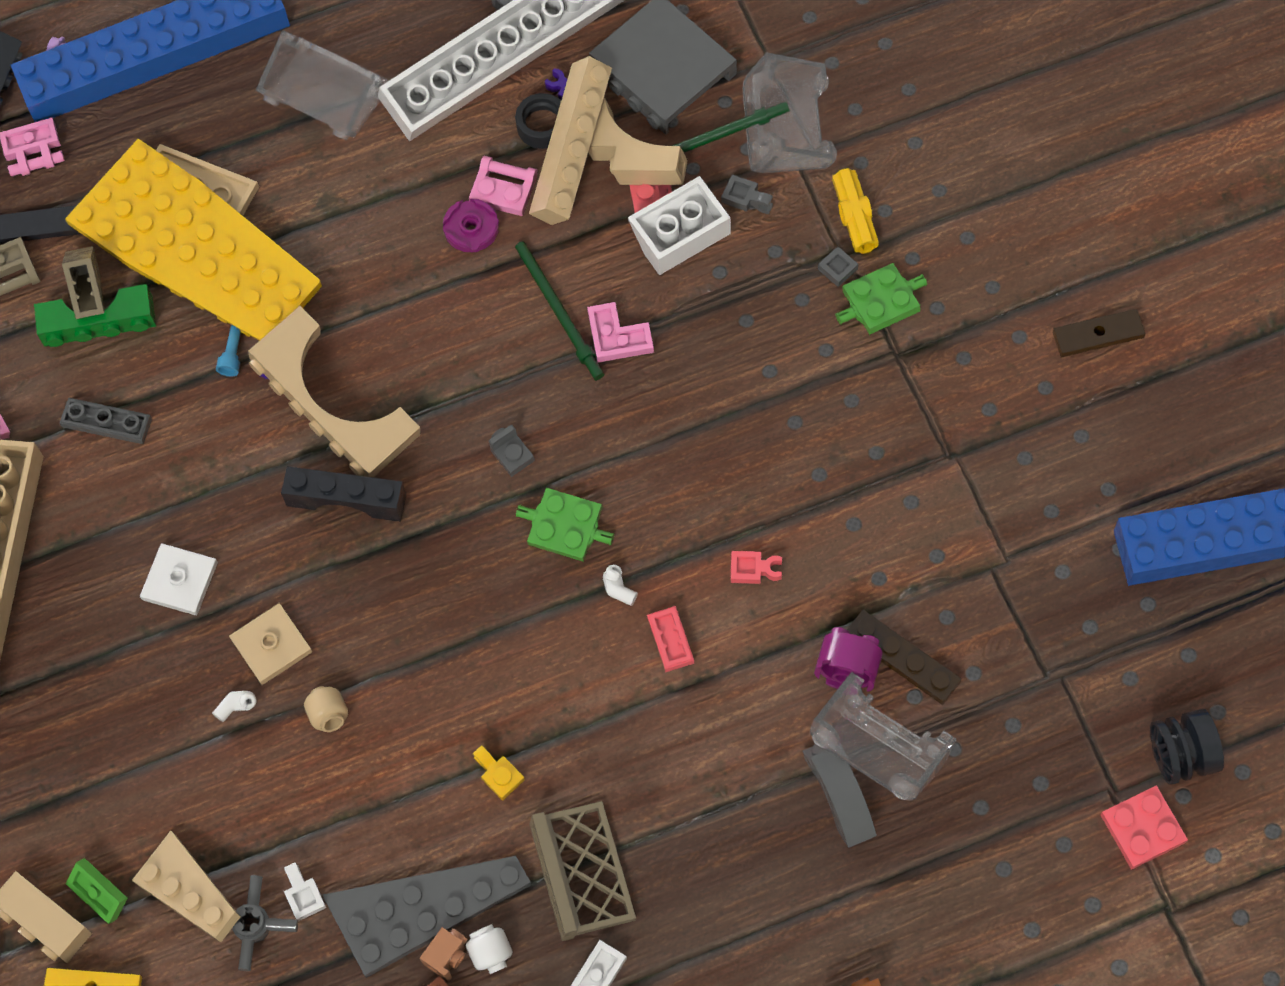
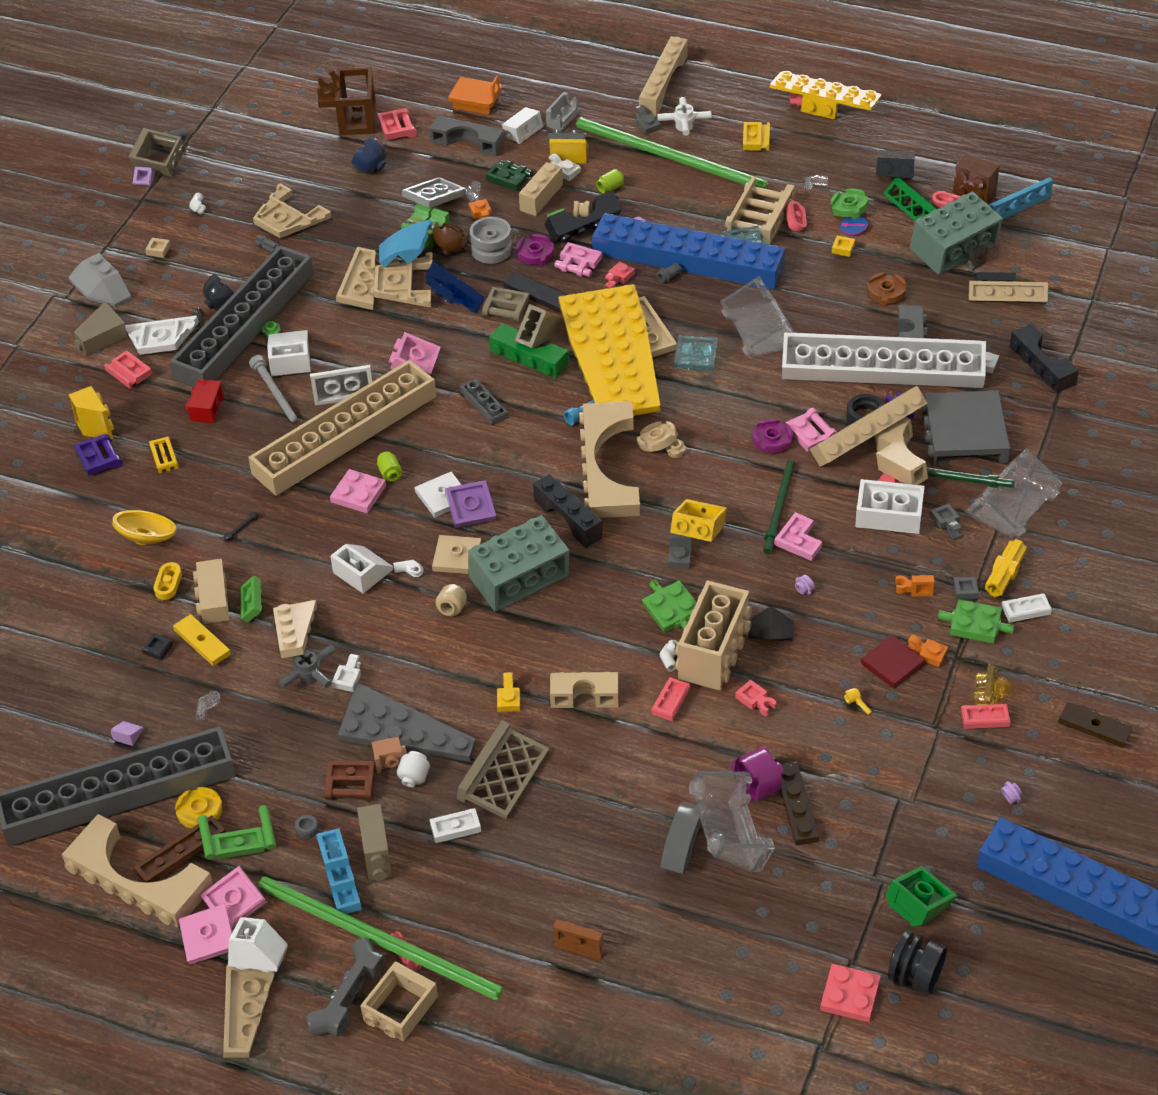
camera: 40 degrees right, 20 degrees down
(76, 651) = (358, 491): none -> bright pink plate
(85, 593) = (389, 466): none -> lime brick
(97, 131) = (619, 273): none -> coral plate
(153, 95) = (665, 274): none -> dark grey pin
(182, 748) = (359, 566): none -> white slope
(227, 570) = (470, 503): none -> medium lavender plate
(287, 177) = (696, 353): none -> clear light blue plate
(340, 315) = (657, 436): none -> tan plate
(360, 606) = (518, 563): none -> sand green brick
(383, 325) = (676, 449): none -> tan plate
(508, 379) = (693, 522): none -> yellow window
(590, 682) = (567, 686): none -> tan arch
(656, 532) = (713, 635): none -> tan brick
(676, 389) = (804, 585): none -> lavender plate
(690, 470) = (771, 625): none -> black slope
(791, 299) = (918, 585): none -> orange plate
(844, 412) = (892, 661): none -> dark red tile
(846, 484) = (853, 695): none -> yellow hand
(869, 370) = (931, 651): none -> orange plate
(916, 244) = (1026, 607): none -> white plate
(958, 360) = (993, 685): none -> clear yellow hips
(990, 406) = (985, 716): none -> coral plate
(1092, 476) = (1011, 792): none -> lavender plate
(1117, 667) = (919, 896): none -> green slope

